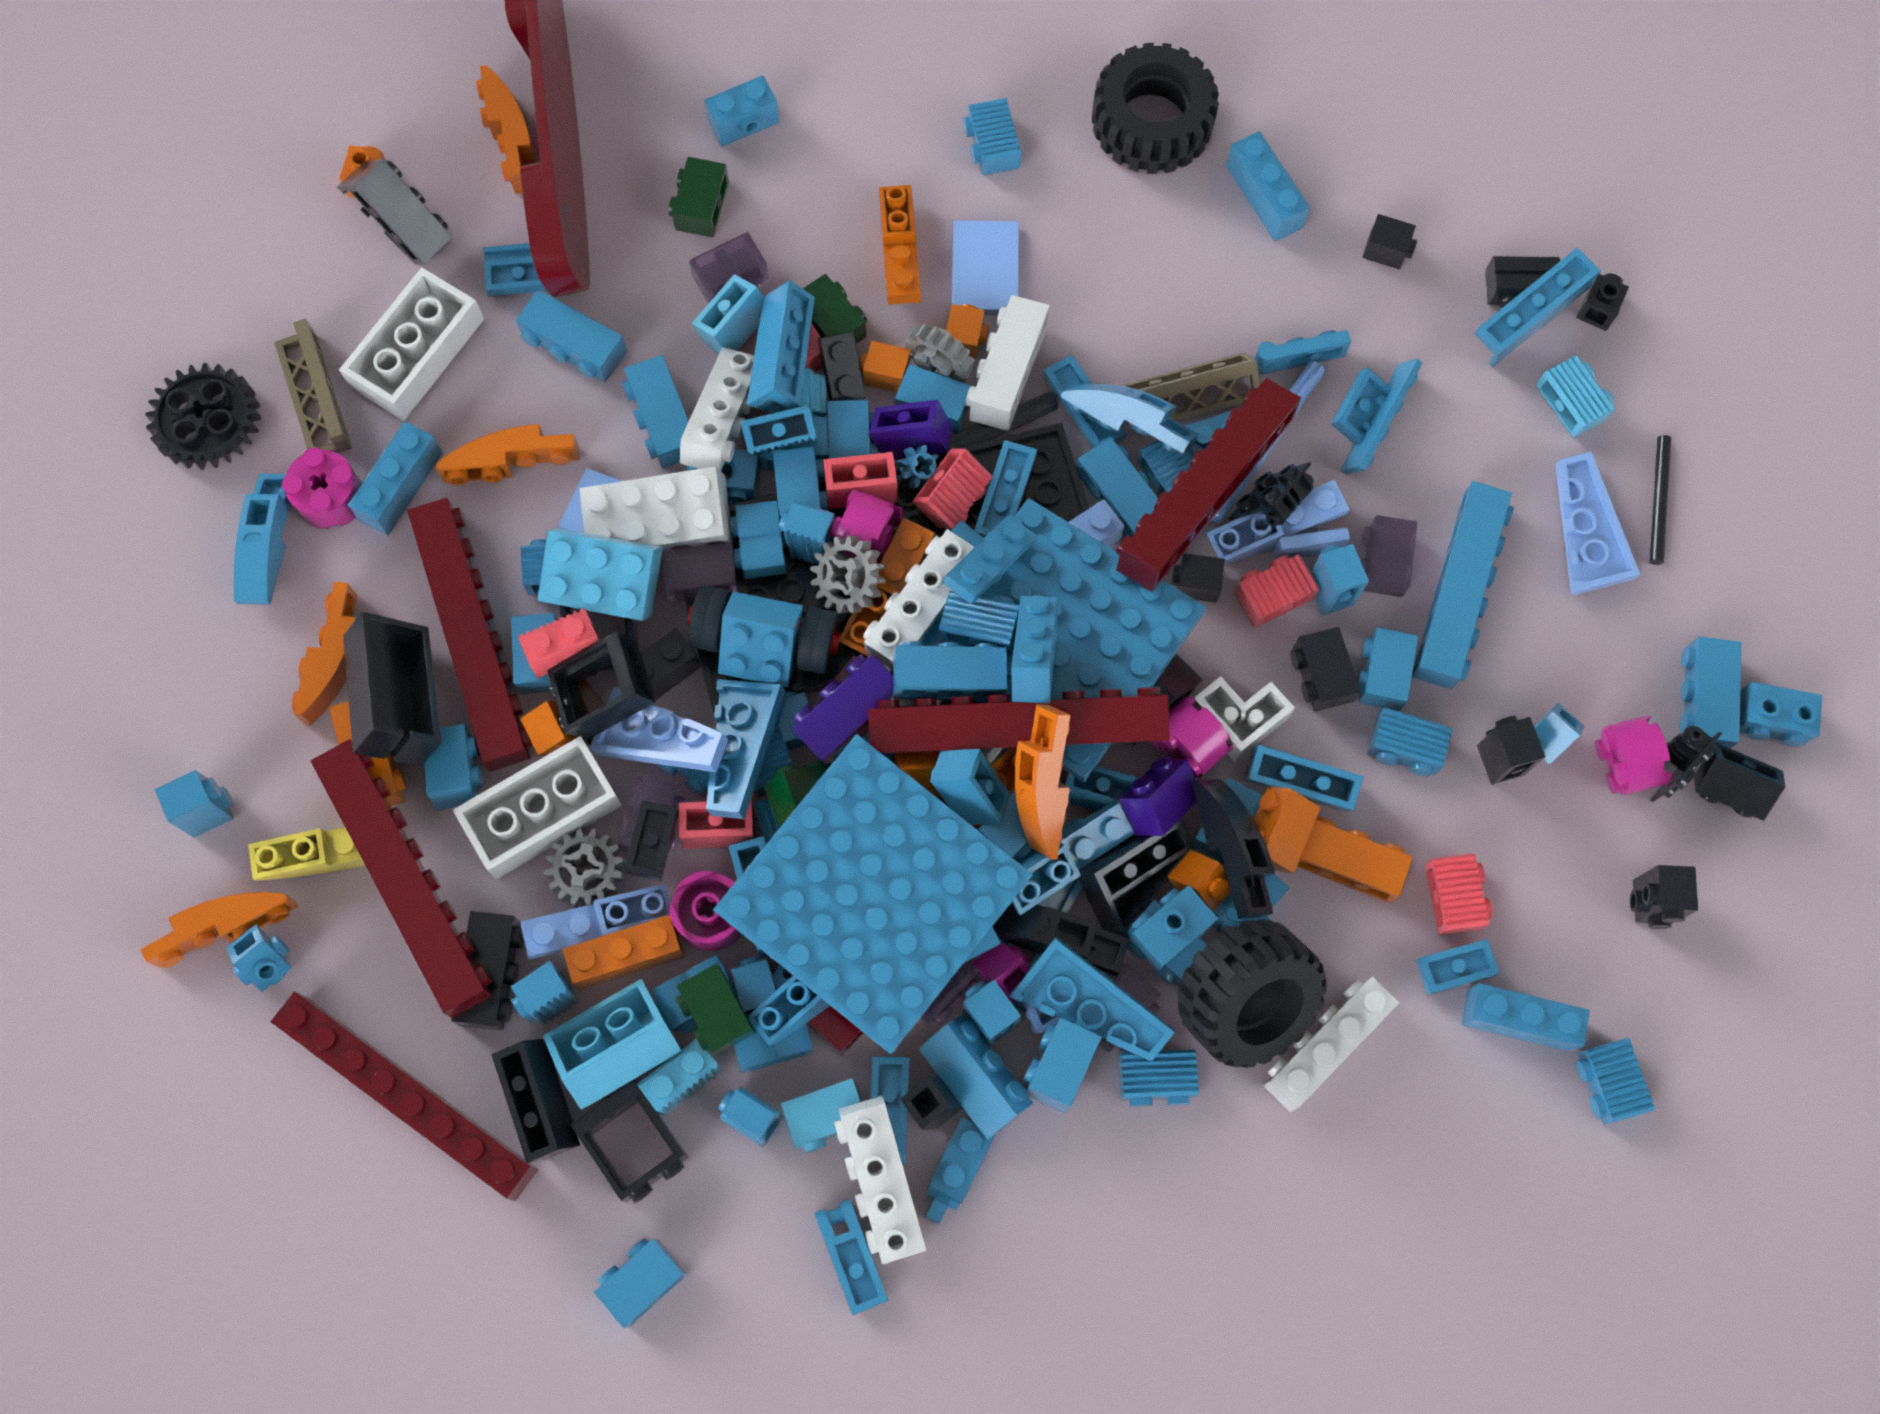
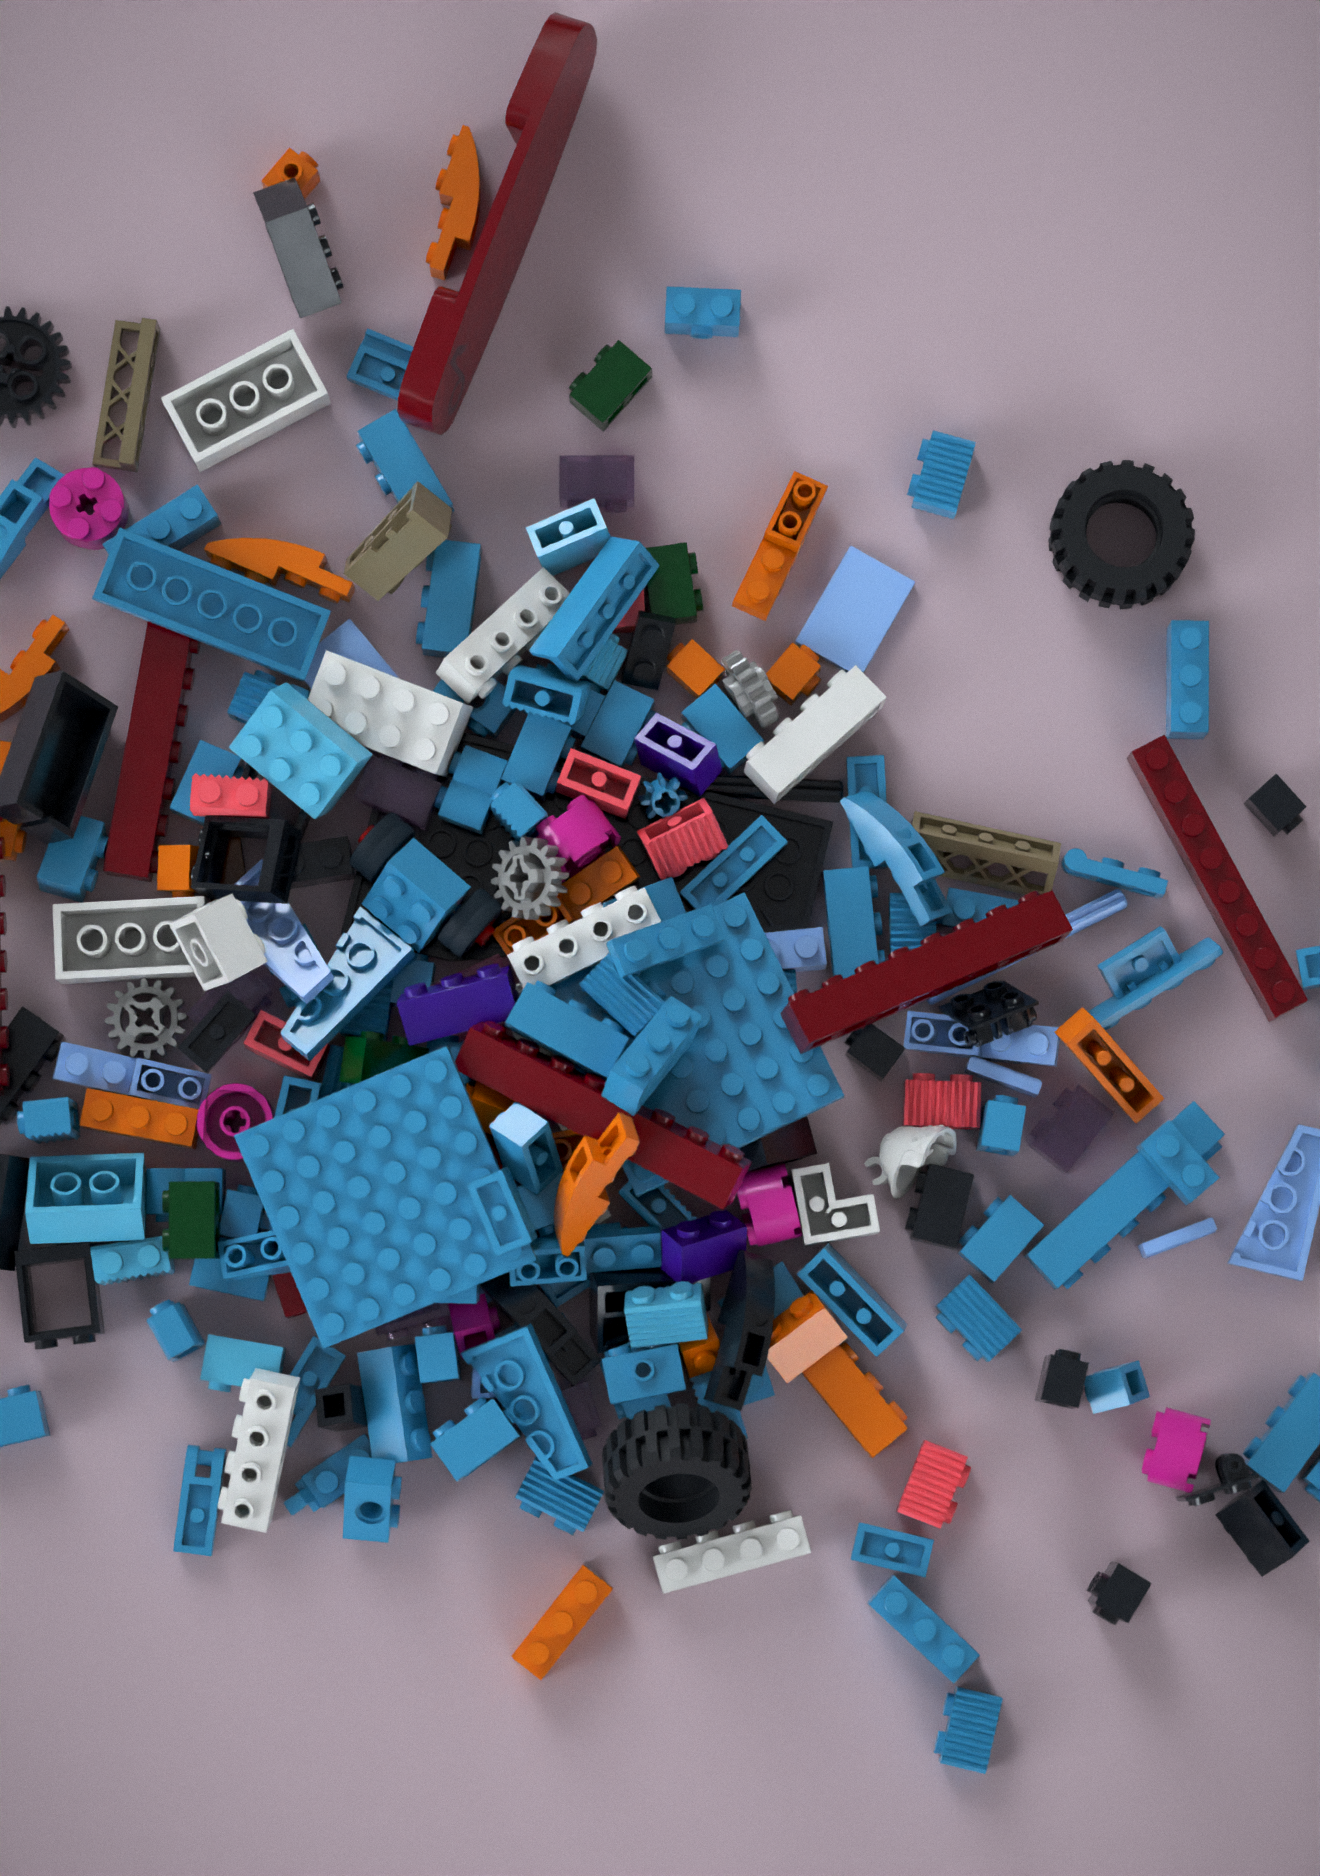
camera: 30 degrees right, 10 degrees up
(462, 505) = (211, 604): none -> dark azure plate
(595, 382) = (399, 542): none -> dark tan wedge
(612, 759) = (219, 942): none -> white brick
(981, 847) = (502, 1211): none -> dark azure panel
(1001, 1169) = (370, 1499): none -> dark azure brick
(1165, 865) = (666, 1314): none -> medium azure brick
(1225, 1184) = (562, 1622): none -> orange brick
(1273, 638) = (909, 1149): none -> white helmet
(1381, 314) = (1216, 878): none -> dark red brick
(1392, 485) = (1109, 1065): none -> orange brick
(1495, 527) = (1177, 1162): none -> dark azure brick
(1523, 594) = (1177, 1238): none -> light blue tile

